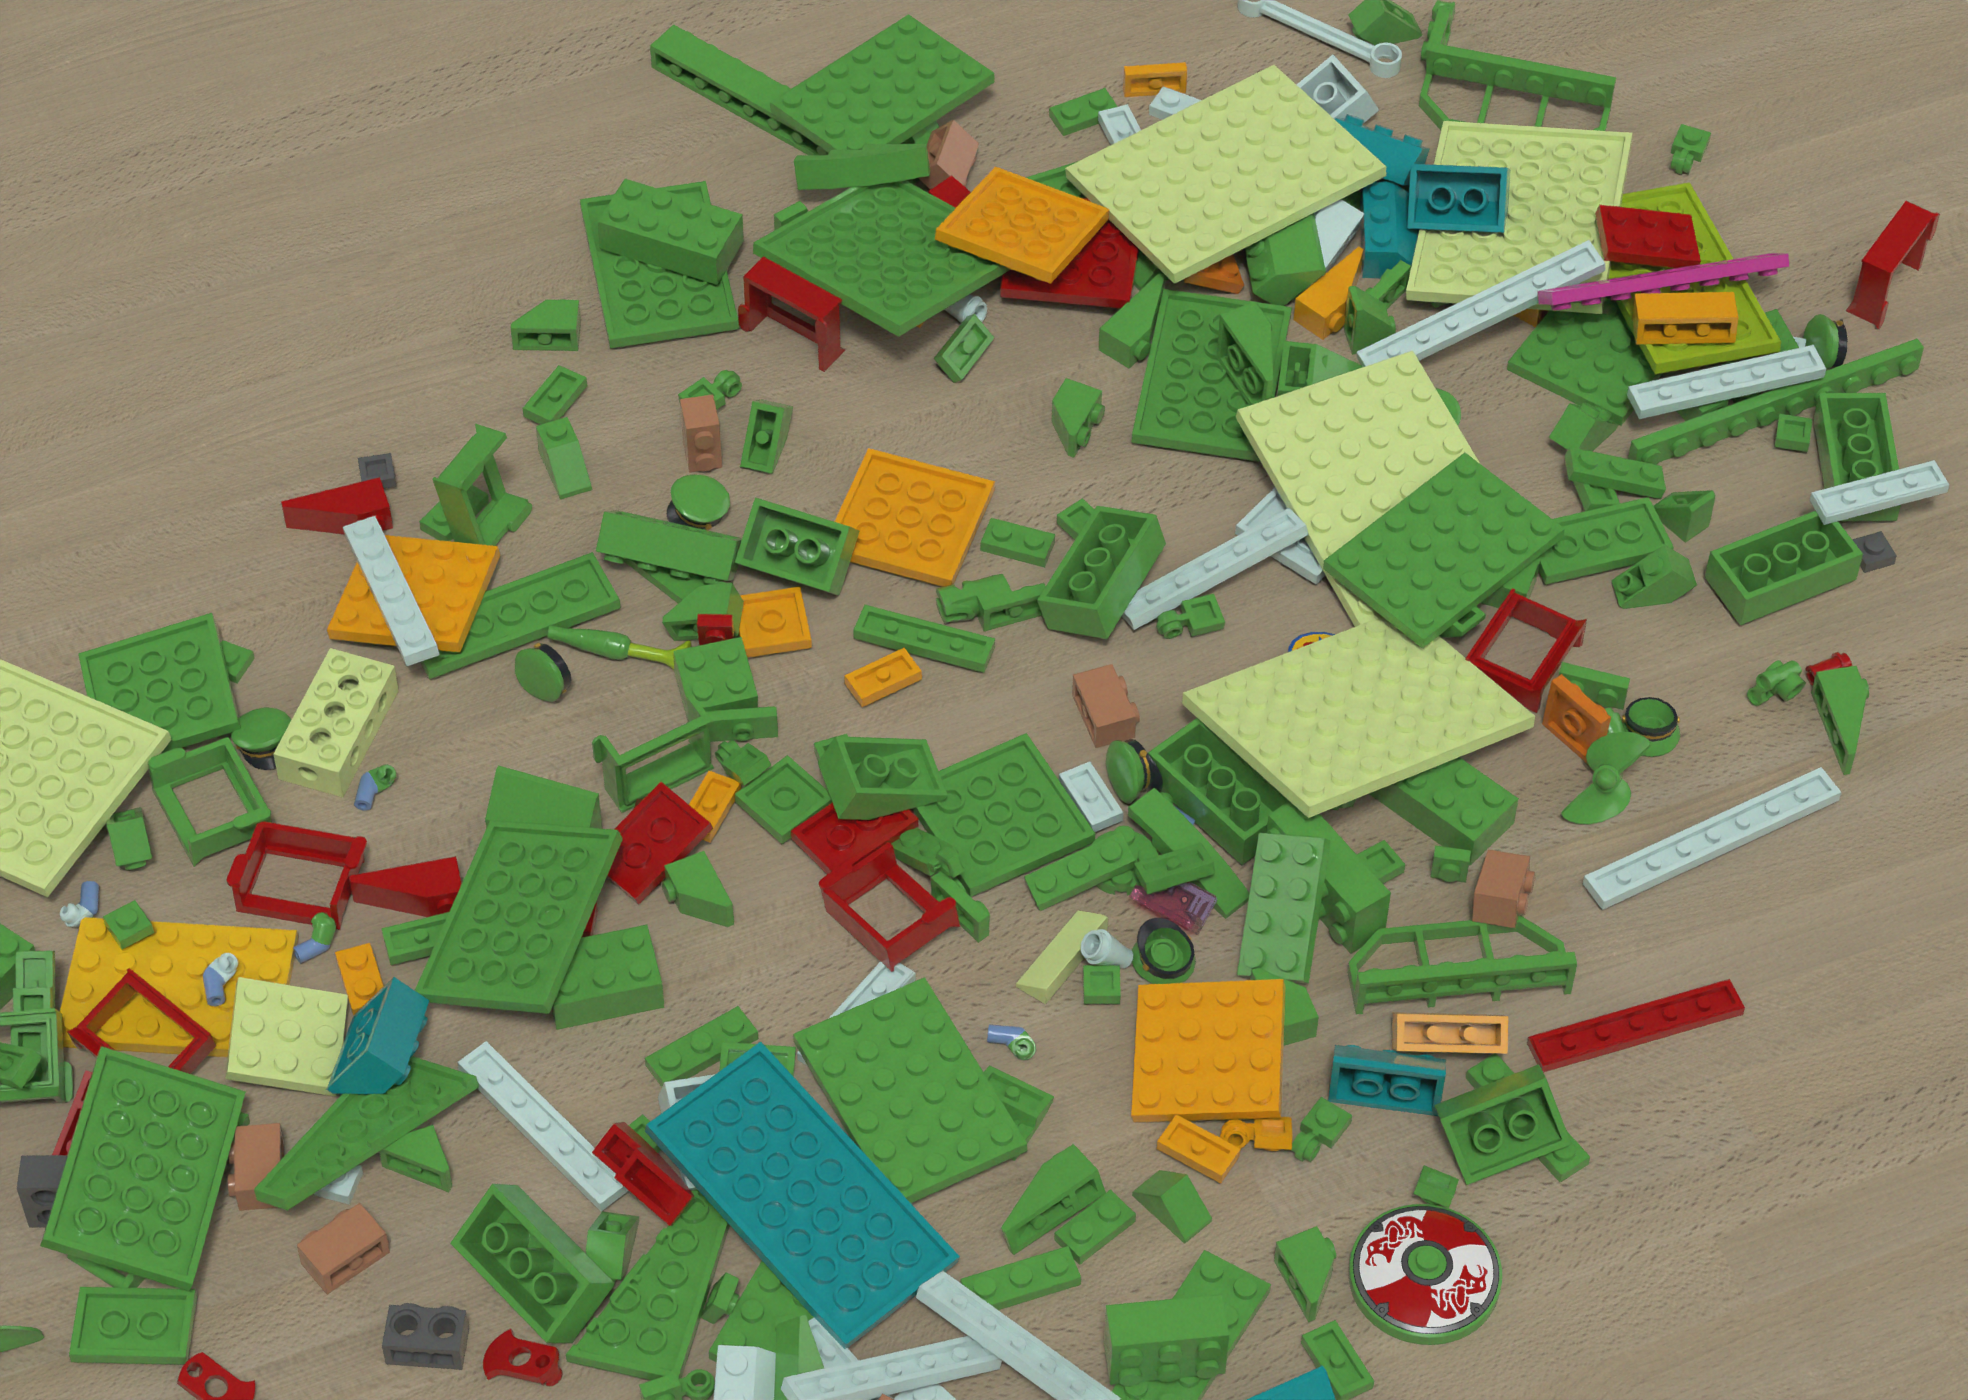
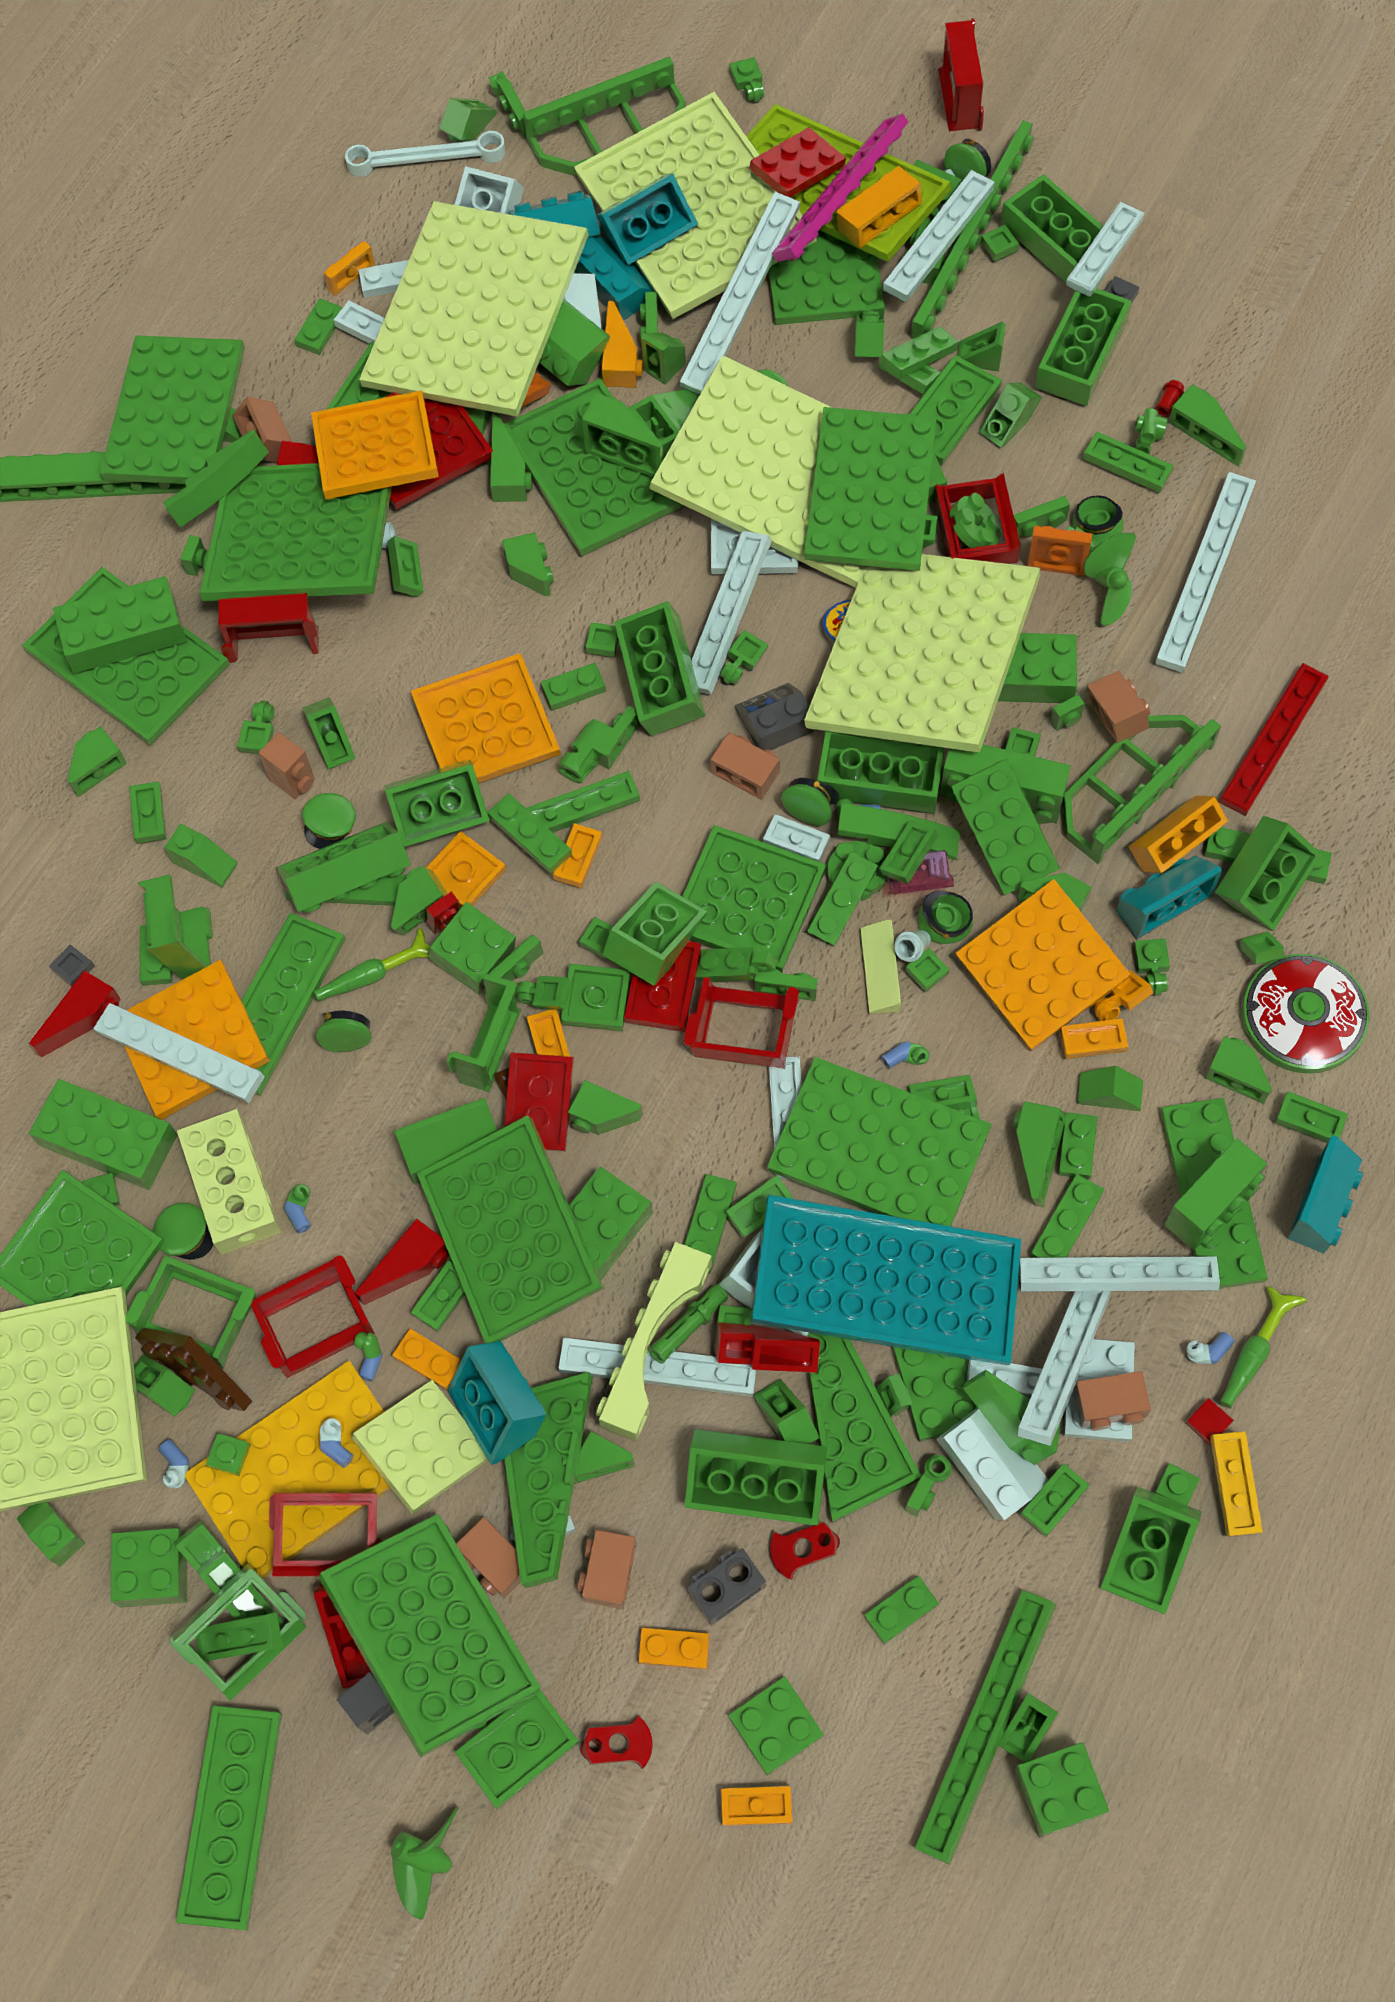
camera: 35 degrees left, 15 degrees up
(166, 838) = (193, 1366): none -> reddish brown plate
(273, 614) = (103, 1134): none -> bright green brick
(336, 1354) = (674, 1648): none -> light orange plate
(592, 1108) = (698, 1314): none -> bright green pin
(623, 1065) = (680, 1281): none -> yellowish green arch
(855, 627) = (529, 833): none -> bright green plate
(1162, 683) = (775, 717): none -> dark grey slope
(1515, 630) = (975, 522): none -> bright green plate
(1730, 696) = (1128, 462): none -> bright green plate

